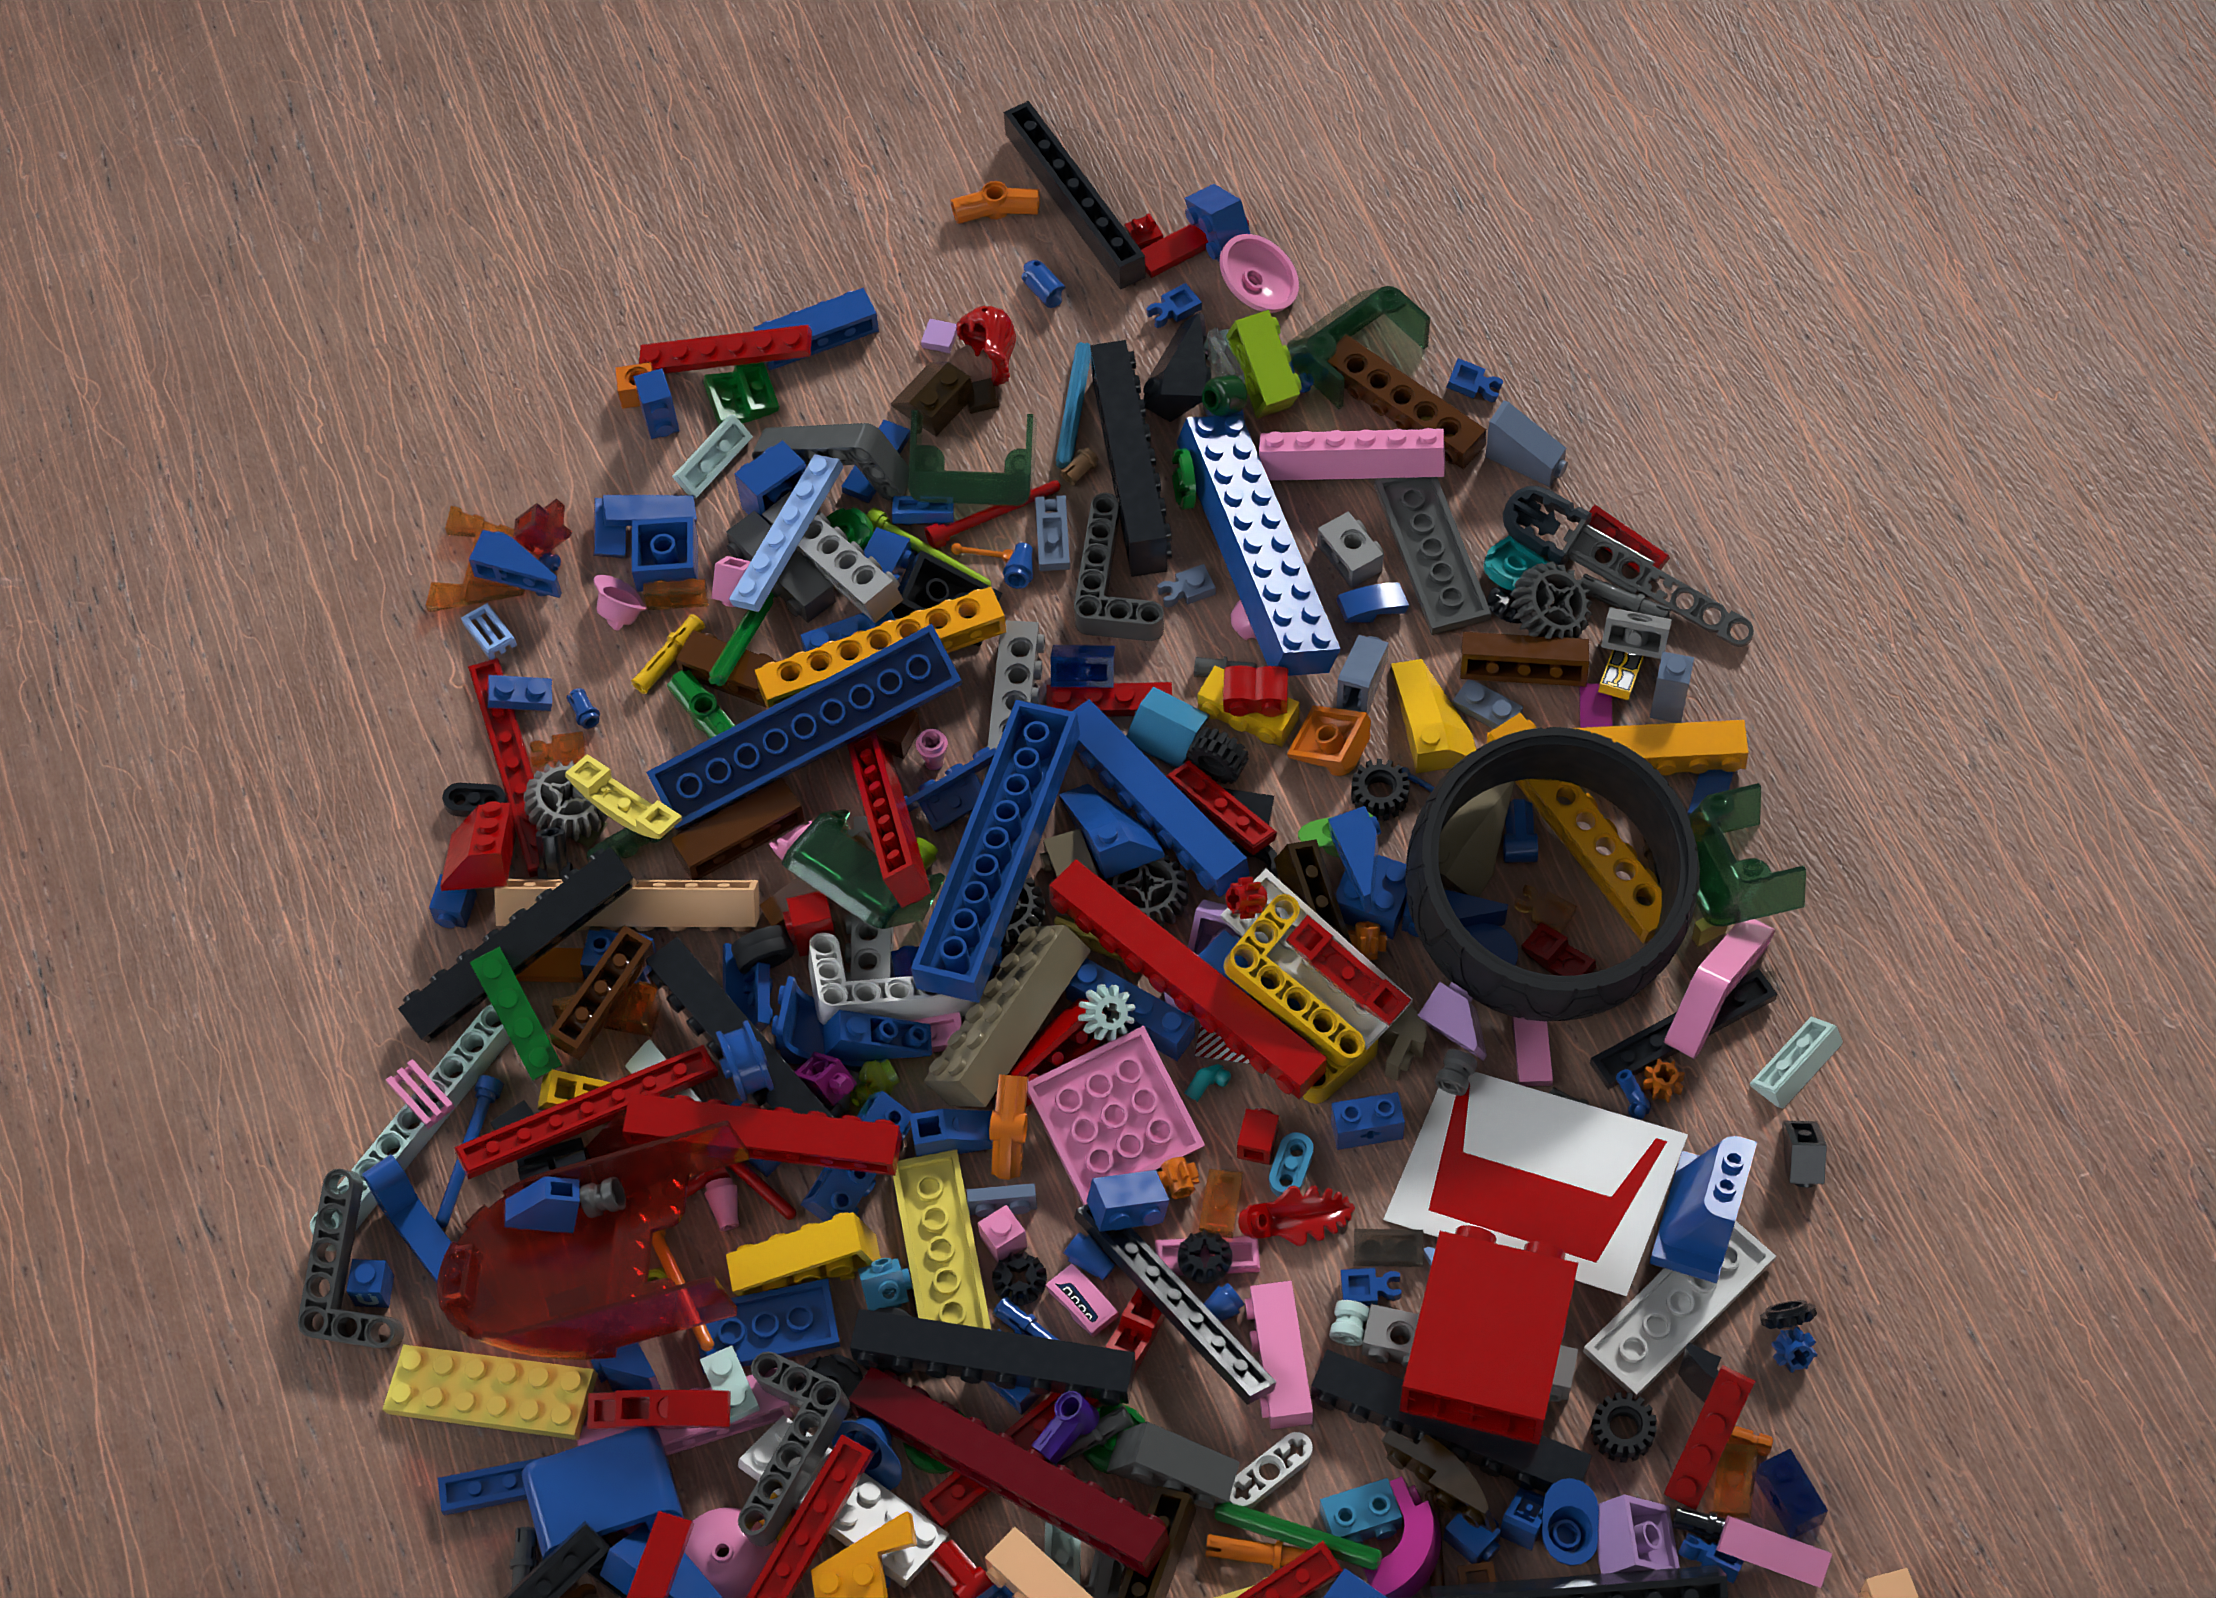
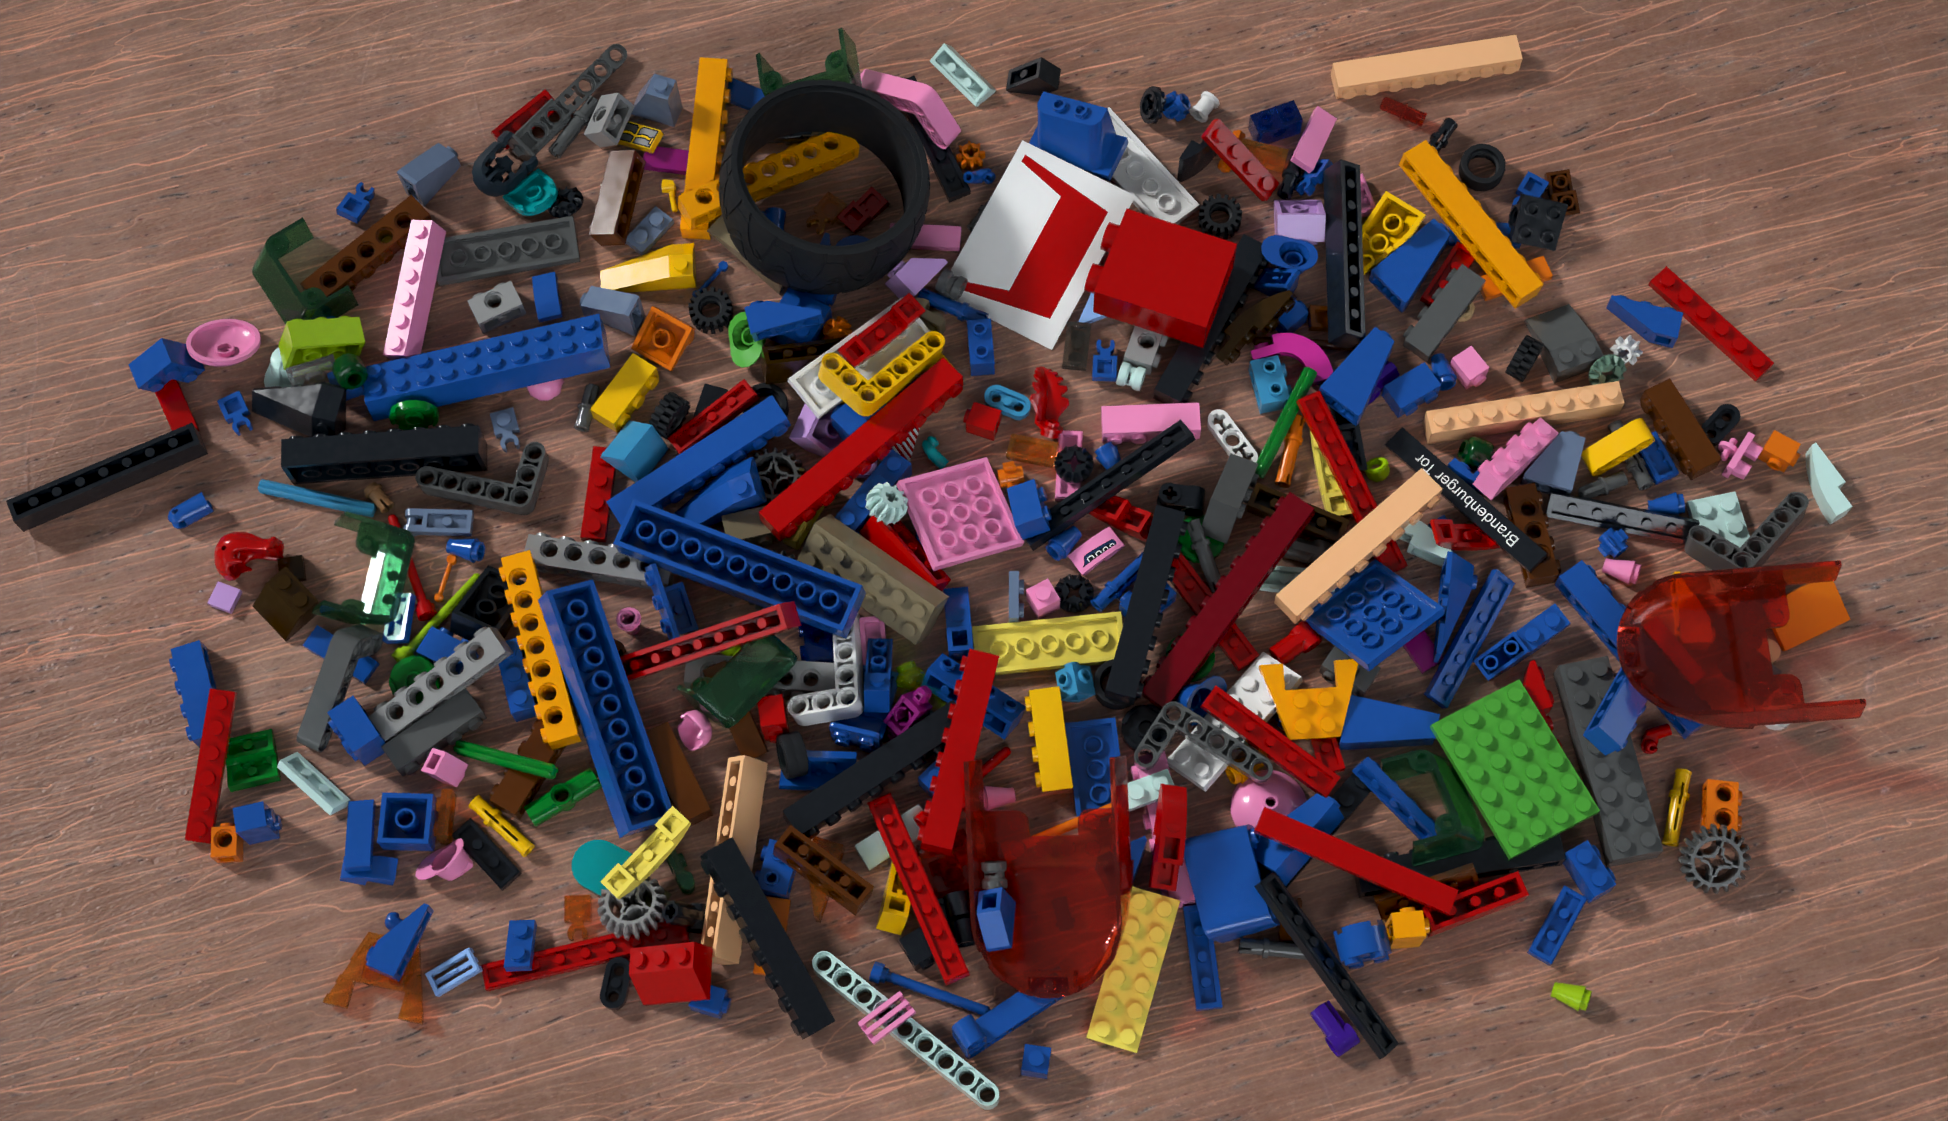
camera: 85 degrees left, 10 degrees up
(337, 1270) = (1029, 1084): dark grey beam -> none
(516, 1013) = (830, 938): green brick -> none
(542, 528) = (364, 921): clear red brick -> none
(586, 714) = (542, 895): blue pin -> none
(628, 759) = (595, 861): none -> teal tile
(634, 645) = (487, 854): none -> black tile
(744, 1061) = (905, 755): blue wheel -> none
(786, 533) = (414, 716): light blue plate -> none
(995, 202) = (98, 555): orange piece -> none
(1009, 1126) = (964, 582): orange piece -> none
(1072, 1418) = (1204, 563): dark purple piece -> none
(1083, 666) = (572, 506): clear blue brick -> none
(1144, 231) = (152, 428): red tile -> none
(1168, 1408) = (1183, 498): none -> black piece
(1246, 898) = (815, 390): red gear -> none
(1255, 690) = (623, 378): red brick -> none
(1422, 1094) = (945, 304): none -> blue pin
(1535, 594) = (575, 171): dark grey gear -> none
(1554, 718) = (669, 186): none -> yellow hand
(1803, 1391) = (1204, 106): none -> white bush

